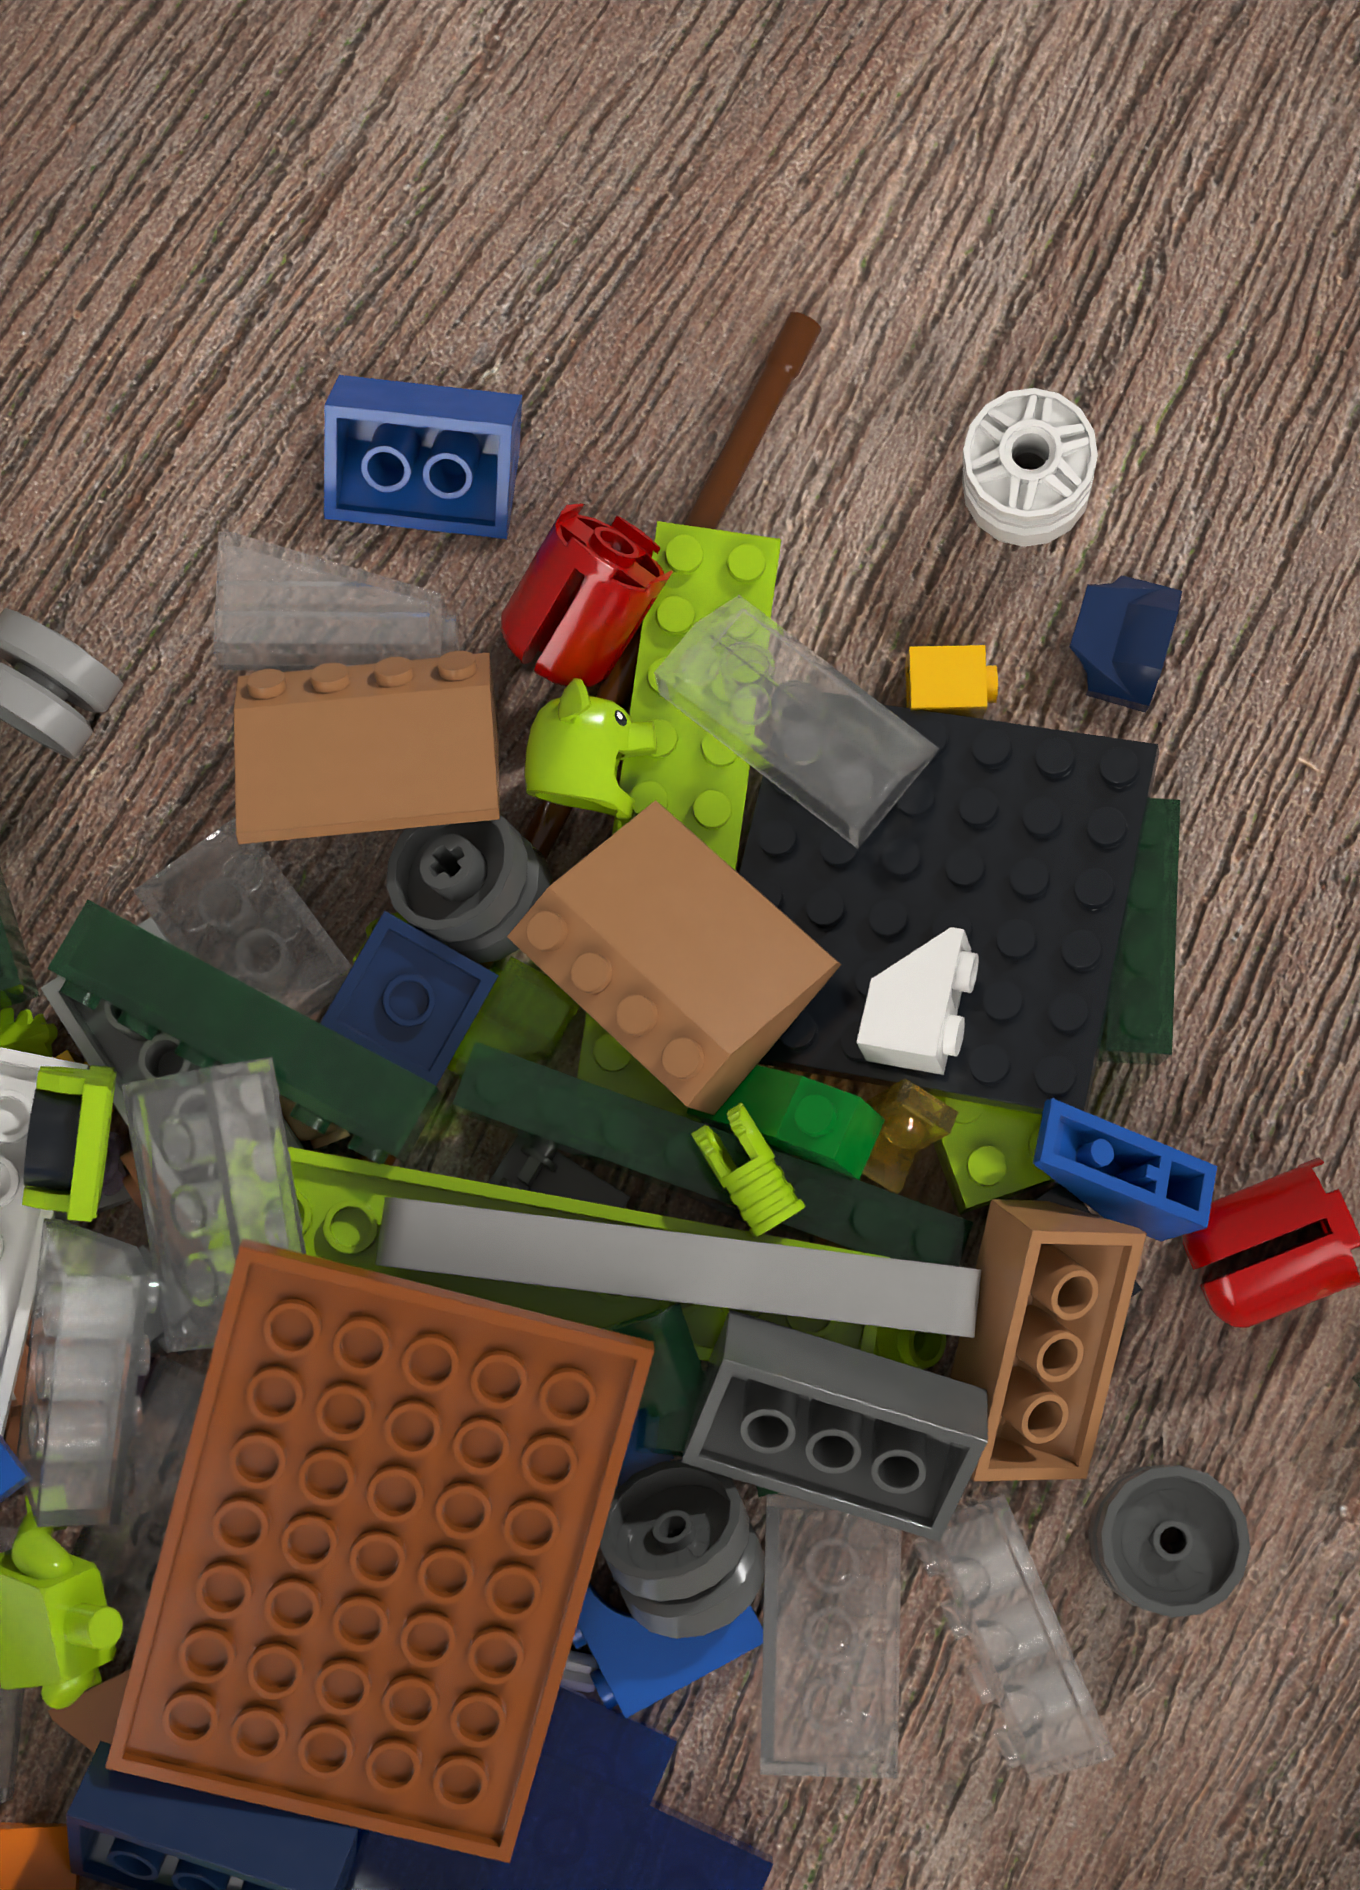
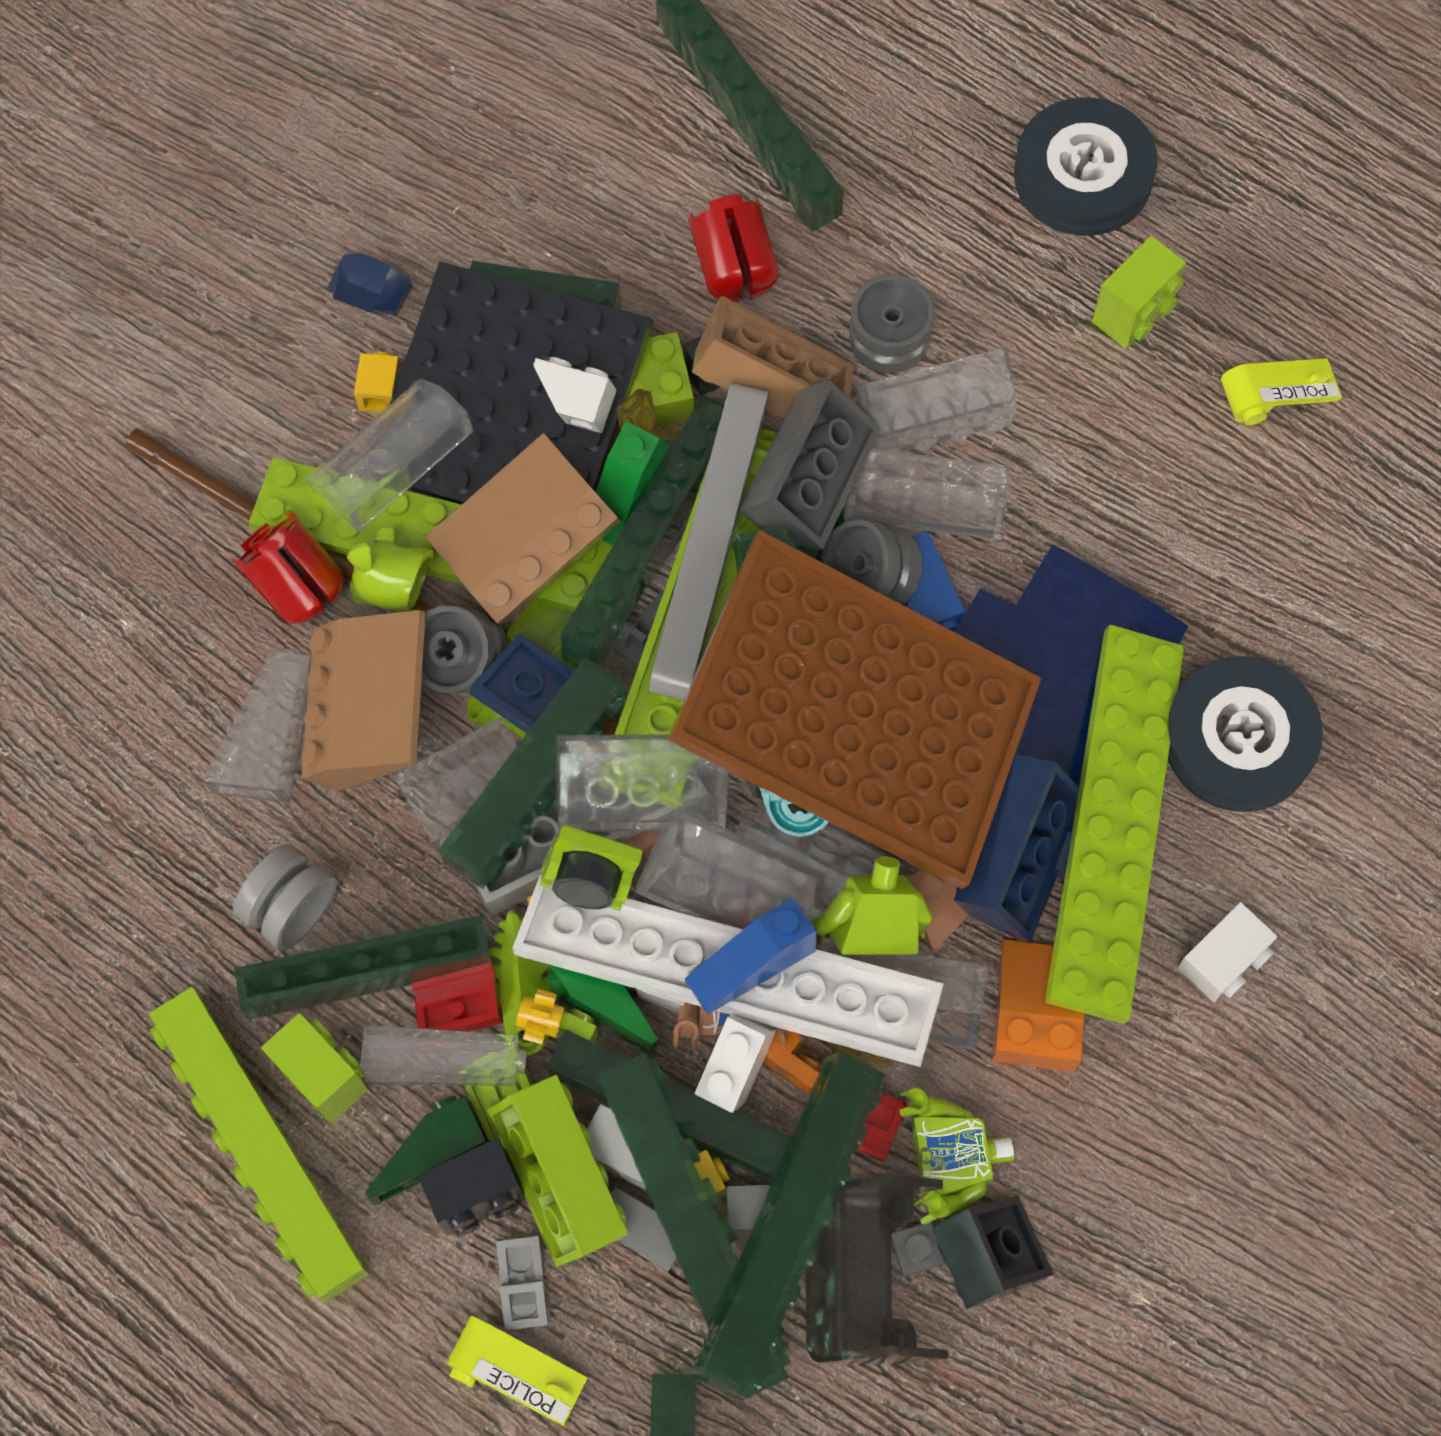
camera: 85 degrees left, 10 degrees down
(421, 456) = (175, 663): blue slope -> none
(756, 1186) = (665, 490): lime hinge -> none
(1034, 432) = (255, 317): white wheel -> none
(1124, 1172) = (685, 306): blue slope -> none

